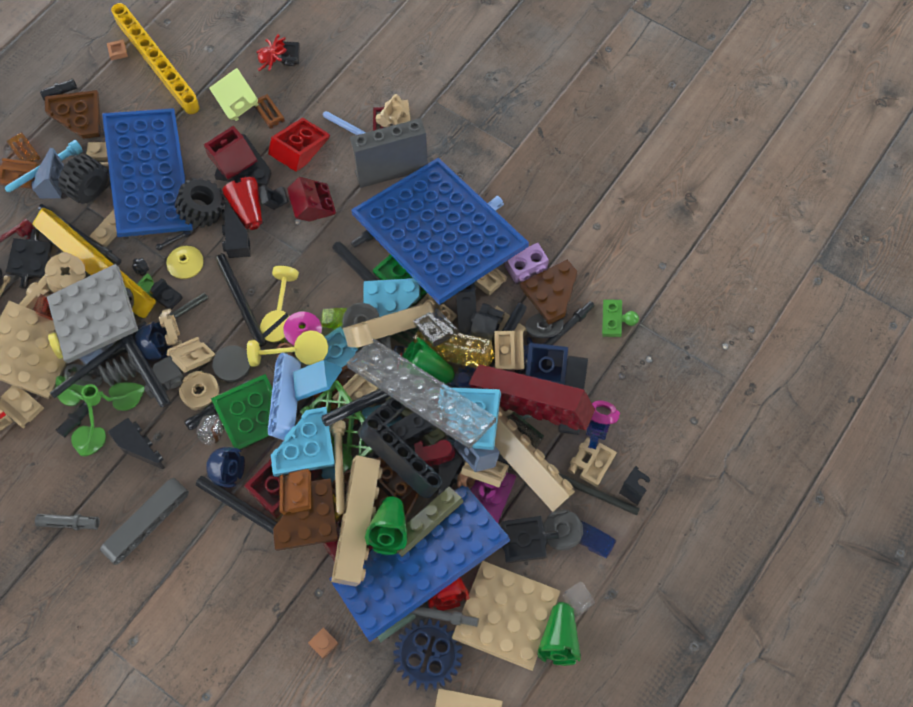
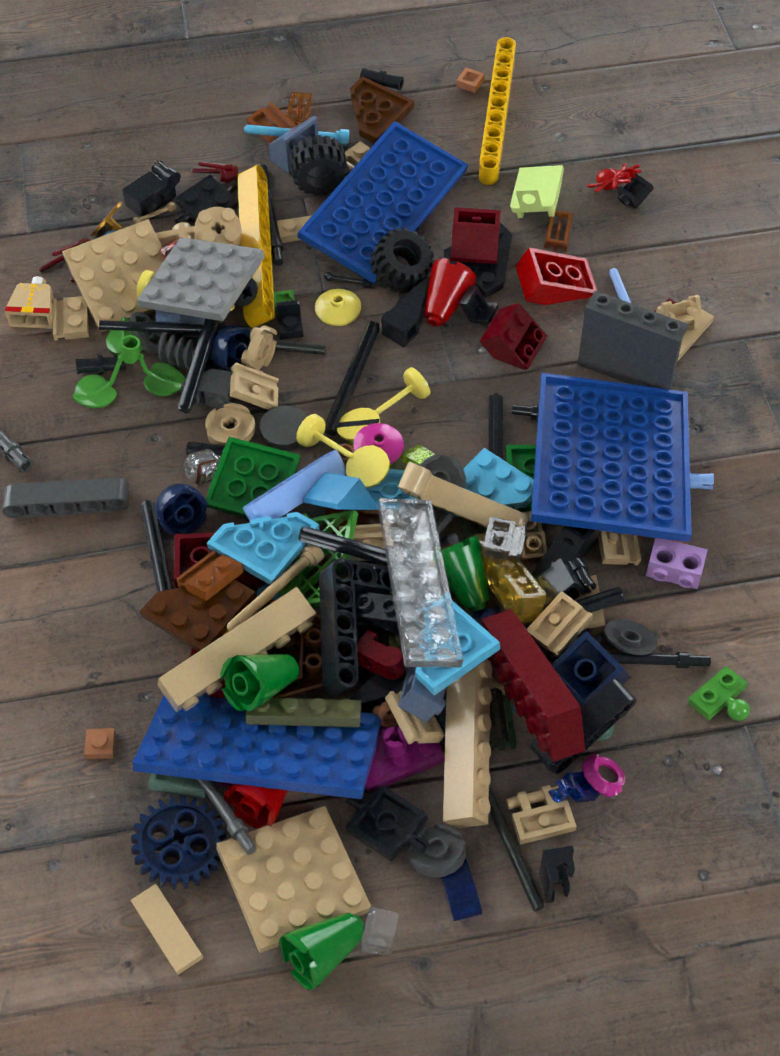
camera: 45 degrees right, 10 degrees down
(131, 442) = (127, 420): black slope -> none
(140, 266) = (292, 279): black plate -> none
(551, 290) = (677, 610): reddish brown plate -> none

